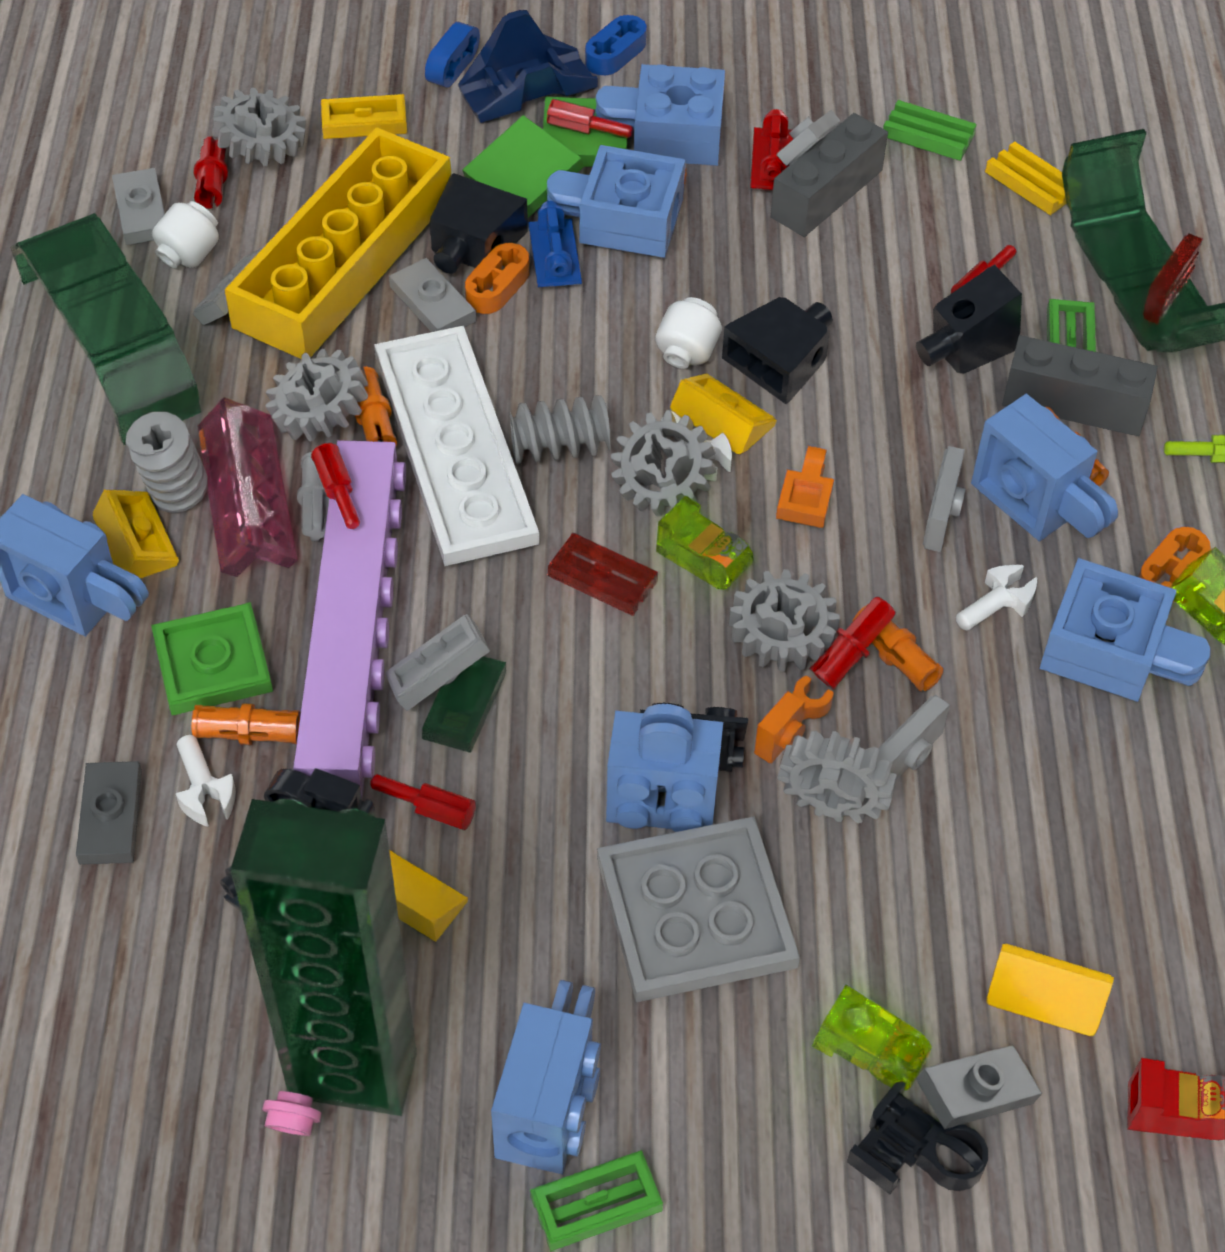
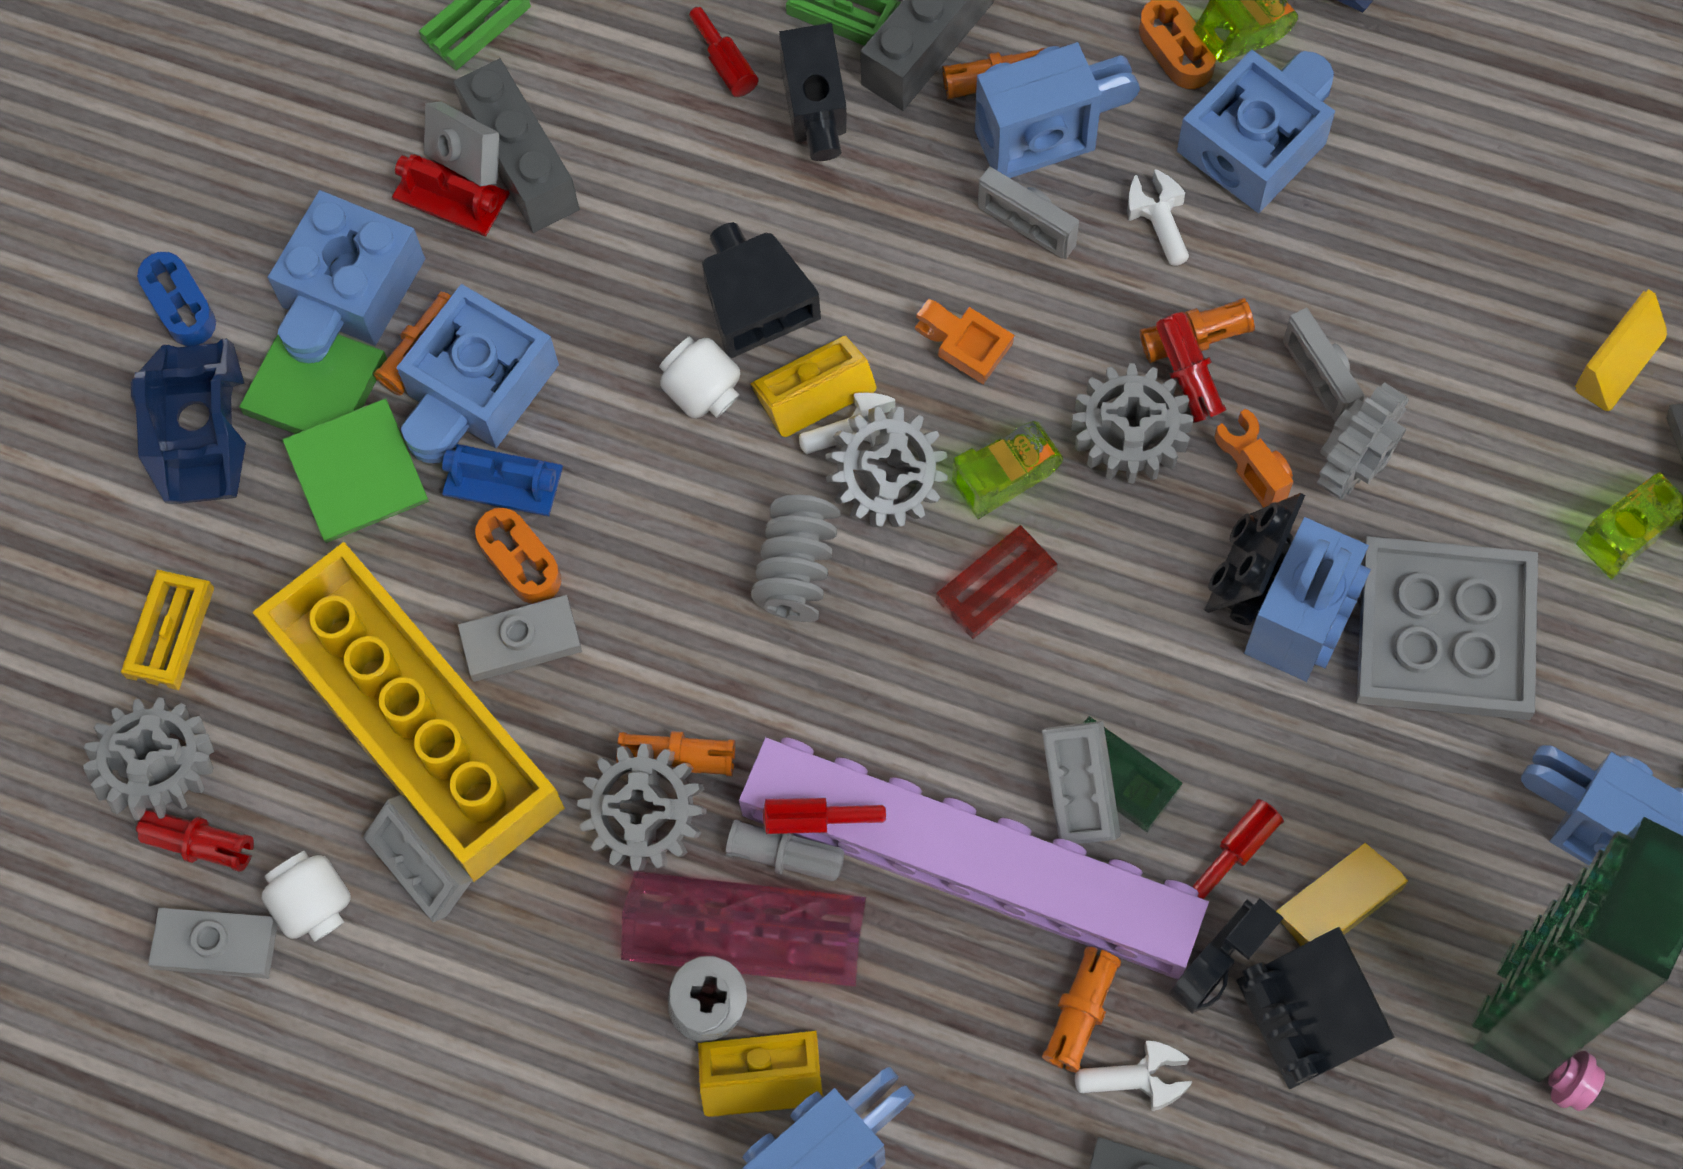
camera: 65 degrees left, 15 degrees up
(111, 320) = (423, 1018): clear green windscreen -> none
(211, 658) = (972, 1027): bright green tile -> none
(452, 54) = (114, 490): blue beam -> none
(456, 446) = (761, 677): white plate -> none
(473, 221) = (429, 555): black torso -> none
(583, 120) = (311, 375): red axle -> none

